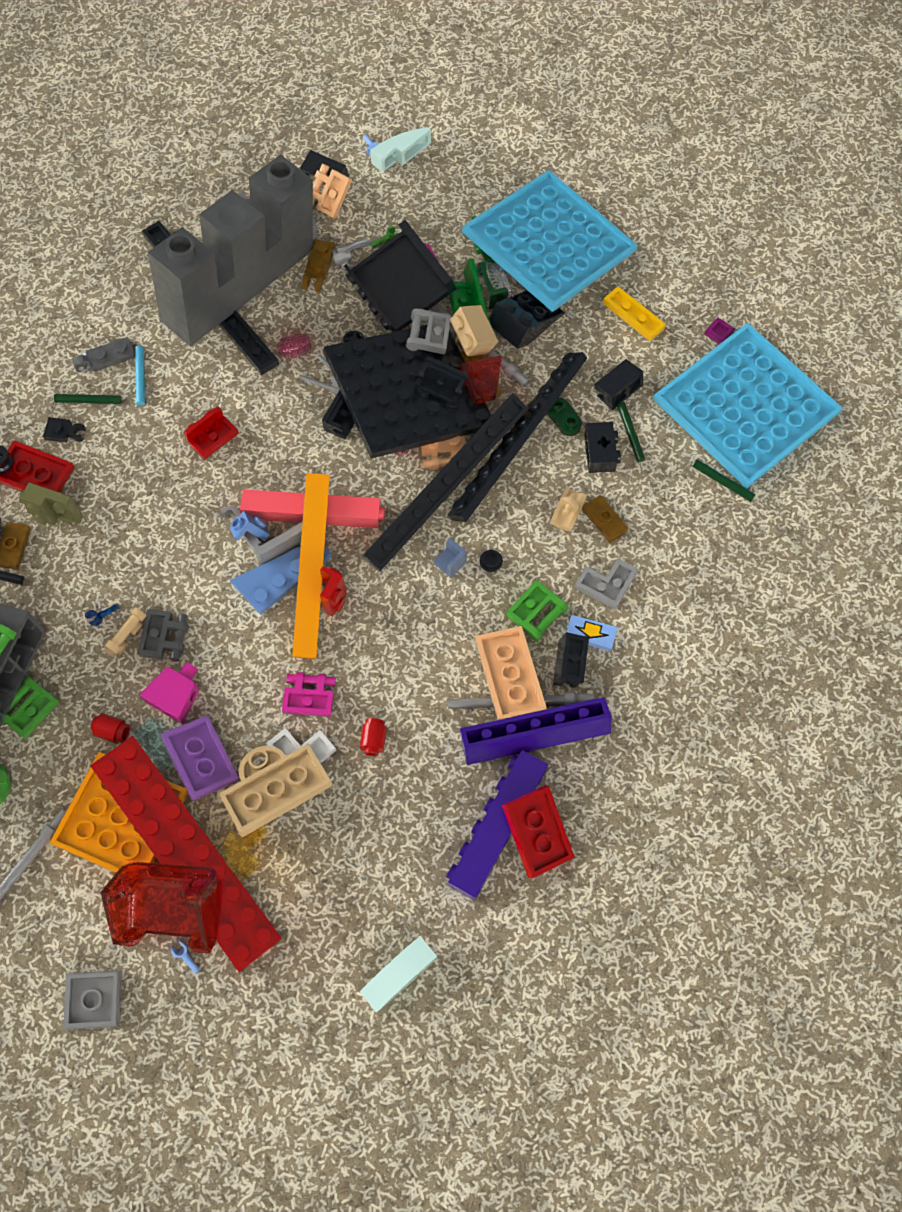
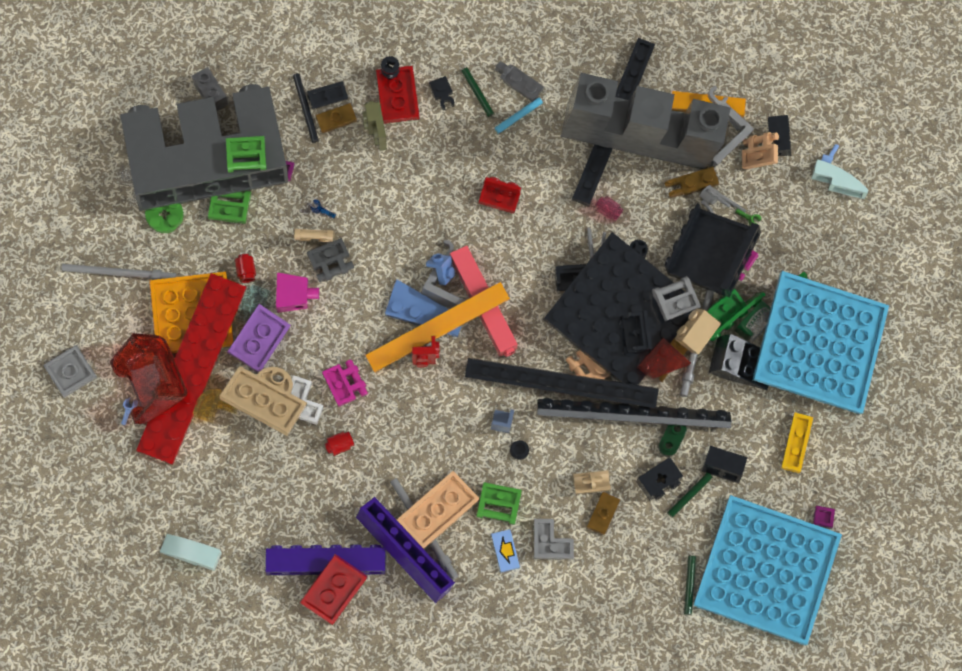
camera: 55 degrees right, 5 degrees up
(571, 660) = (473, 547): black hinge -> none

